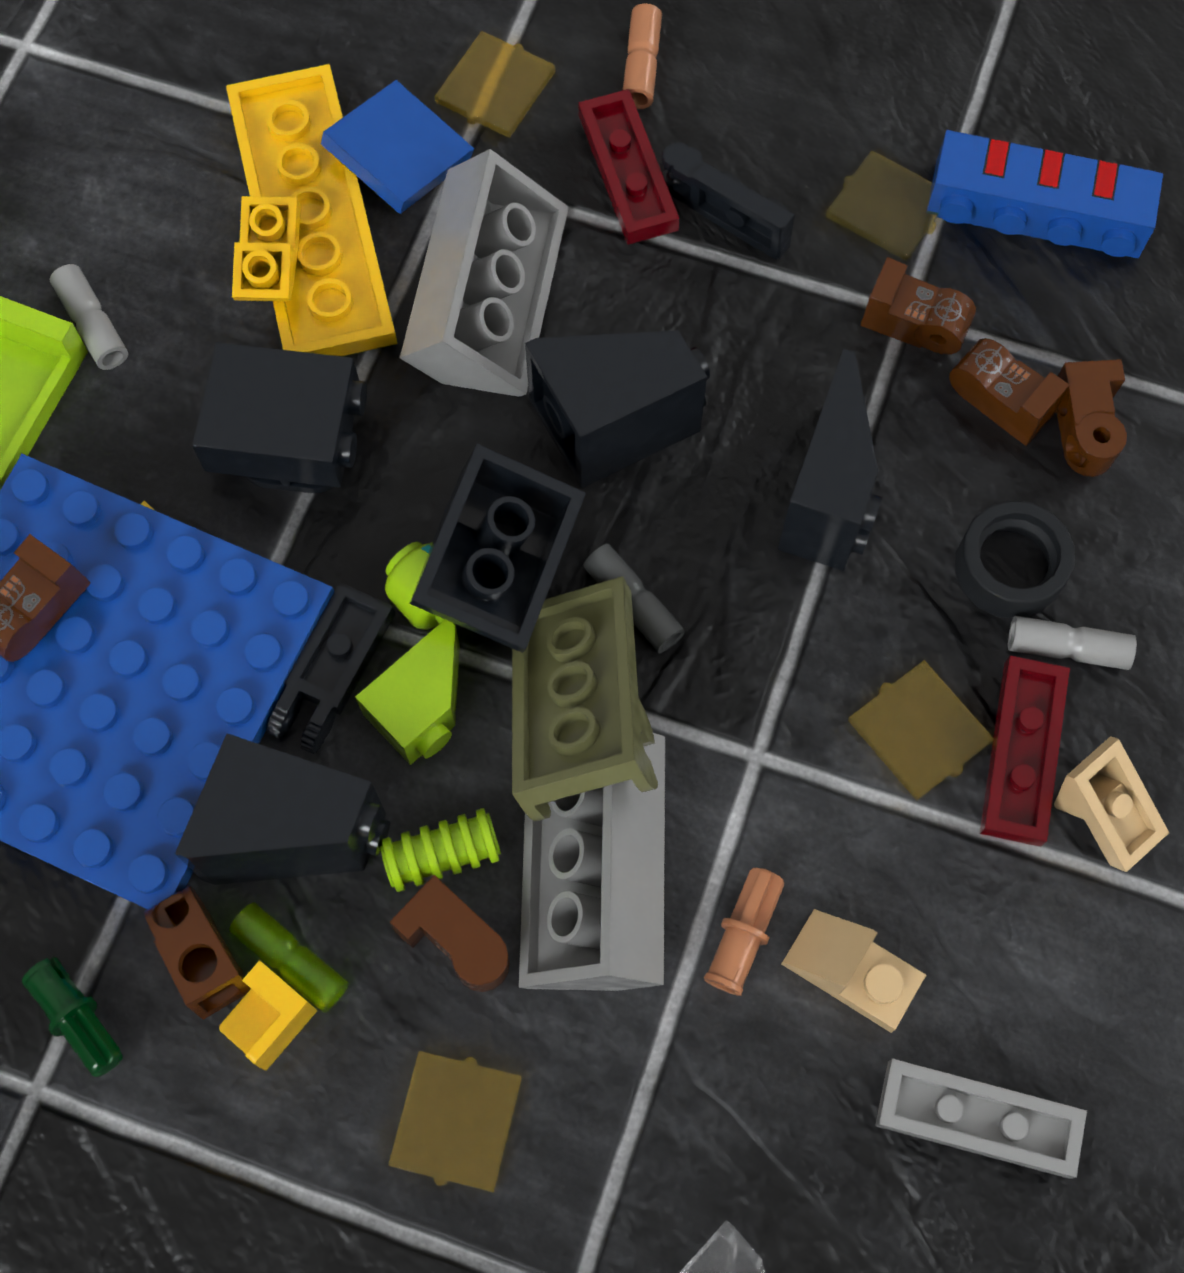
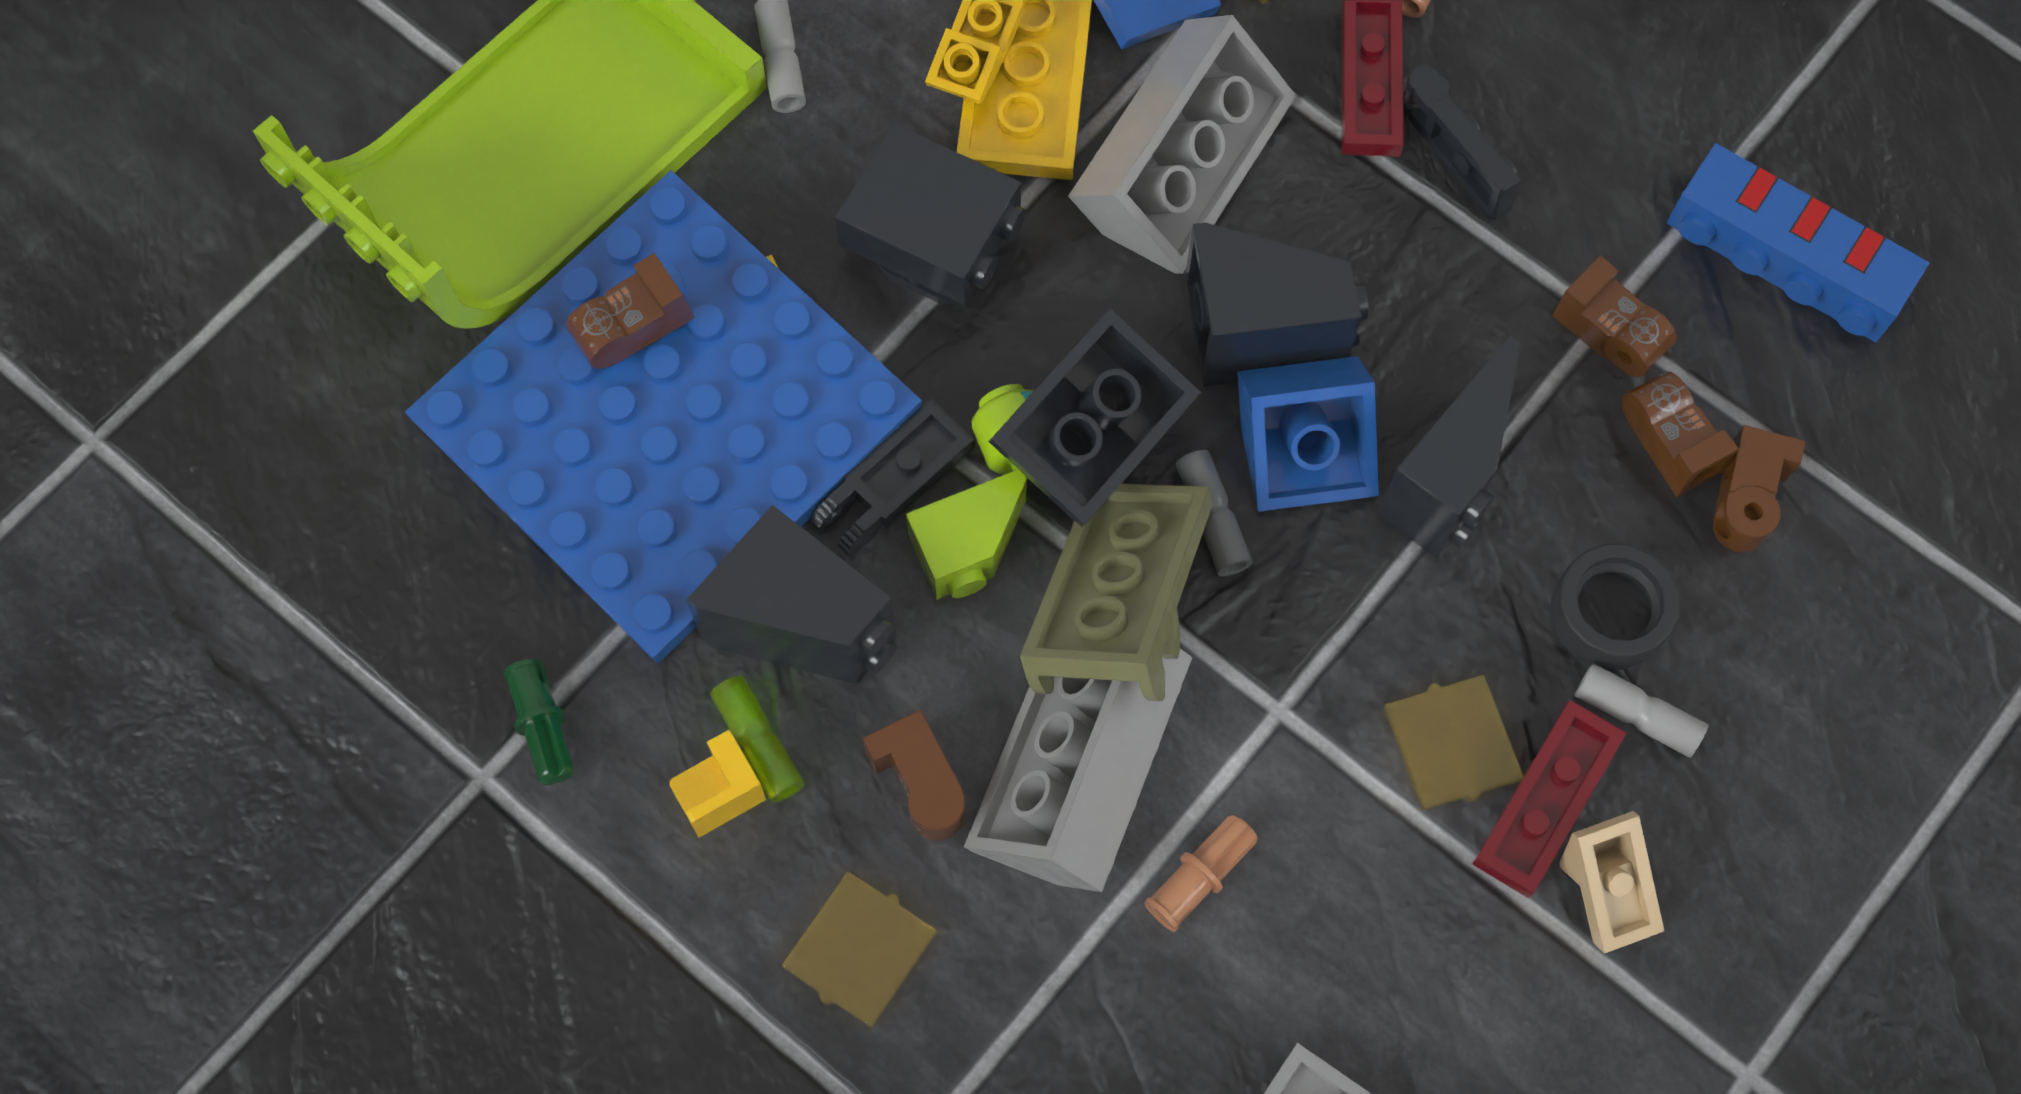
camera: 20 degrees right, 0 degrees up
(195, 953) = (672, 704): reddish brown leg -> none
(440, 850) = (935, 689): lime piece -> none
(692, 497) = (1309, 432): none -> blue slope
(854, 969) = (1295, 948): tan slope -> none
(885, 205) = (1627, 200): clear yellow piece -> none

